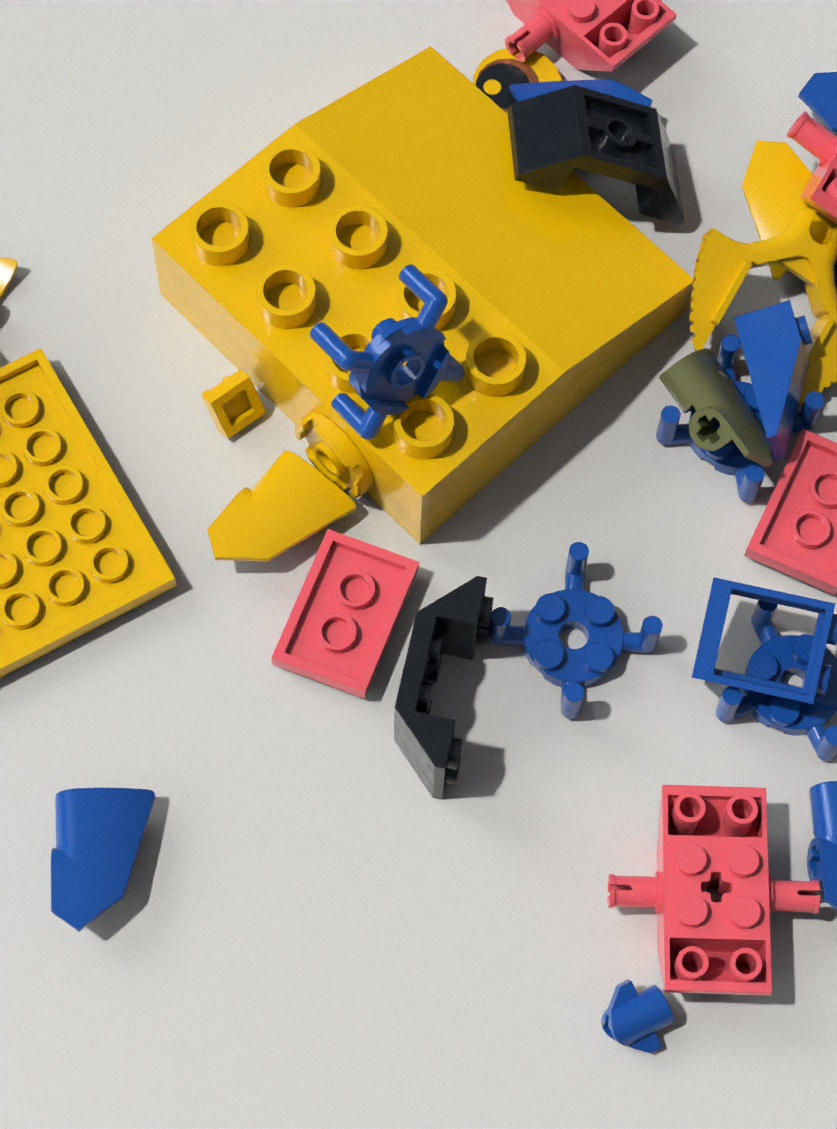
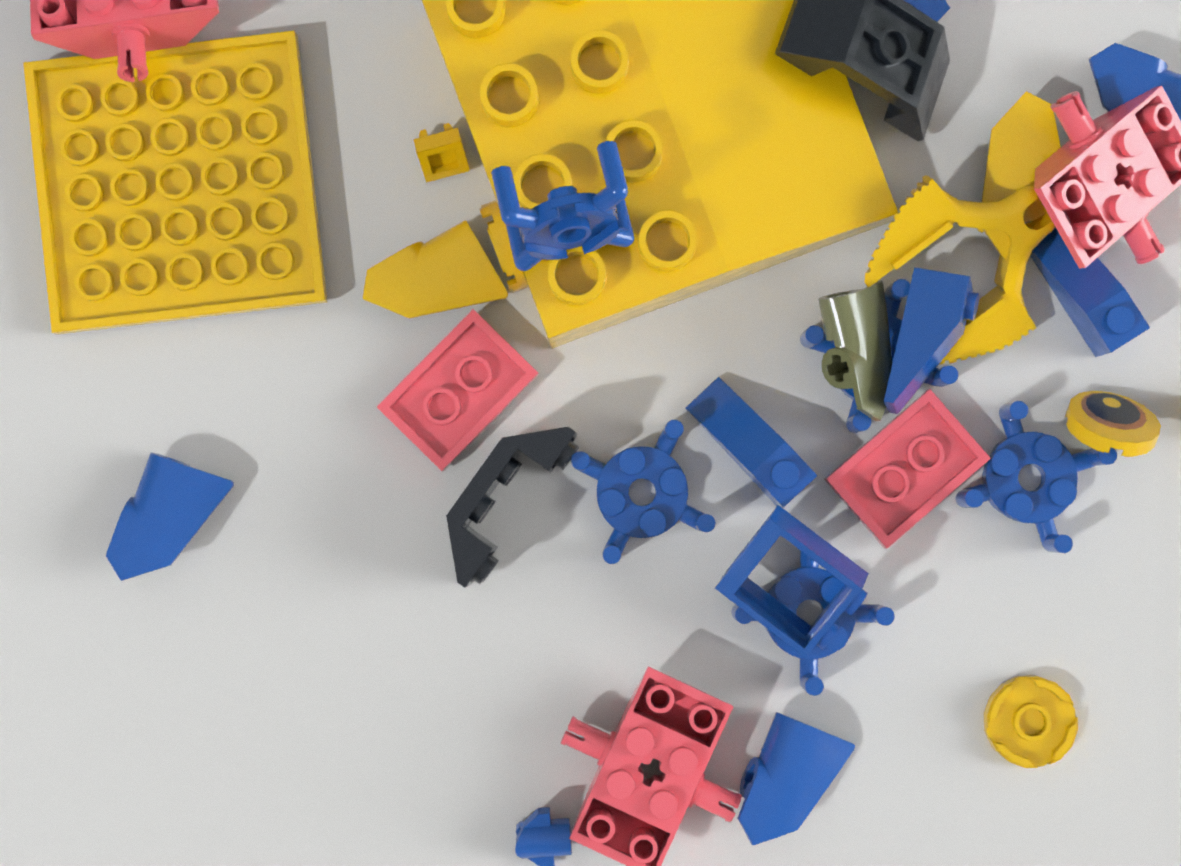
camera: 30 degrees right, 20 degrees up
(660, 546) = (751, 443): none -> blue slope

